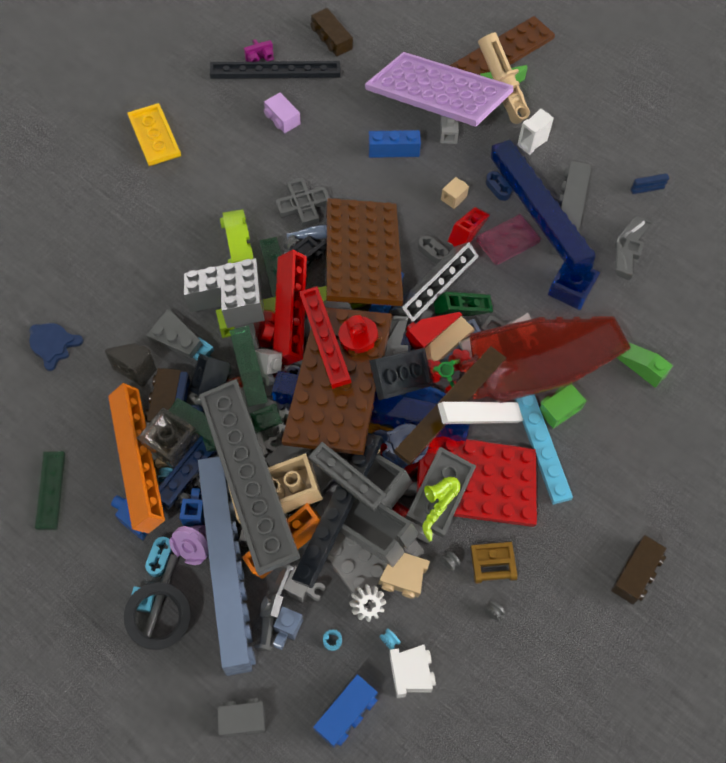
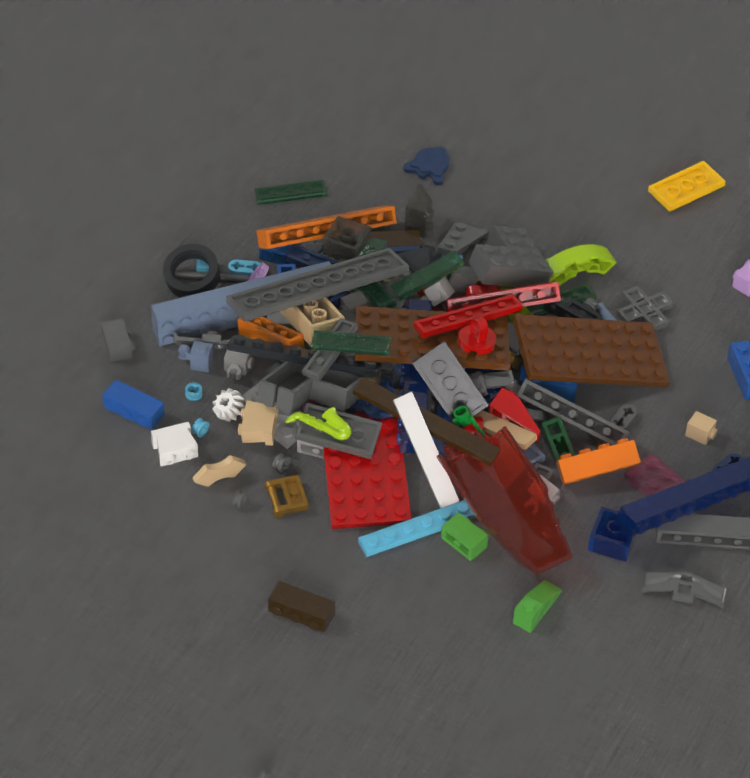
camera: 80 degrees right, 15 degrees down
(350, 452) = (351, 343): none -> clear green tile
(455, 617) = (212, 472): none -> tan tile
(467, 227) = (654, 439): red slope -> none
(493, 276) = (598, 462): none -> orange brick

